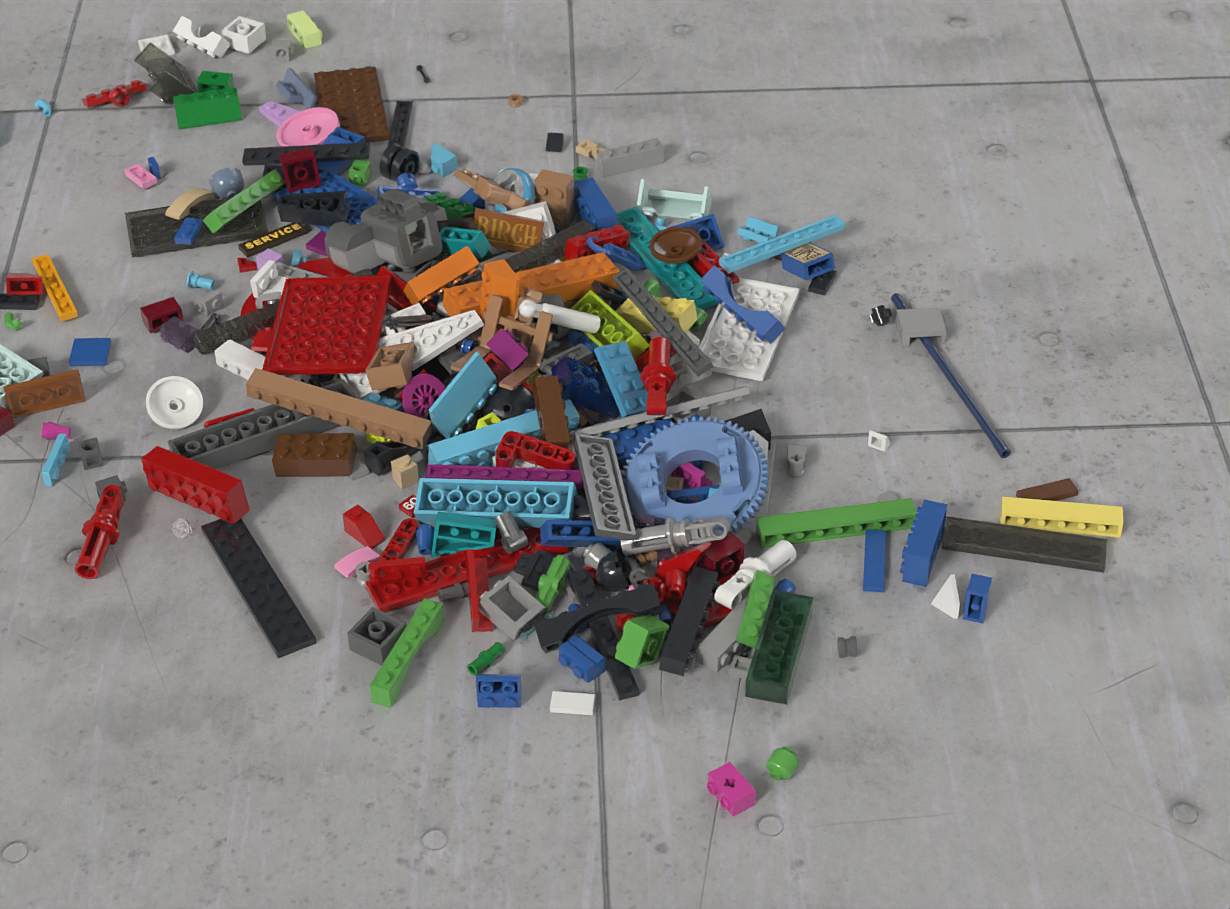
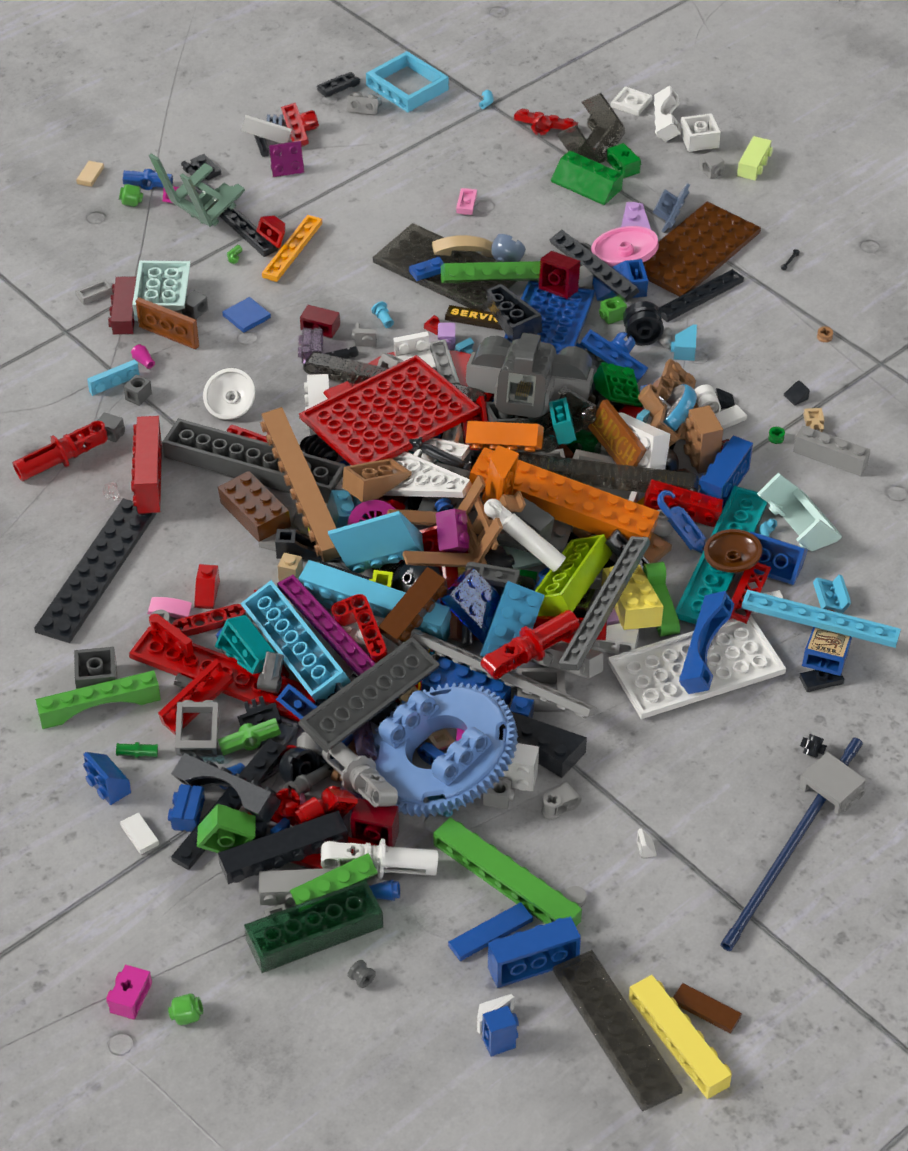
camera: 50 degrees right, 5 degrees up
(154, 167) = (483, 201): blue tile -> none

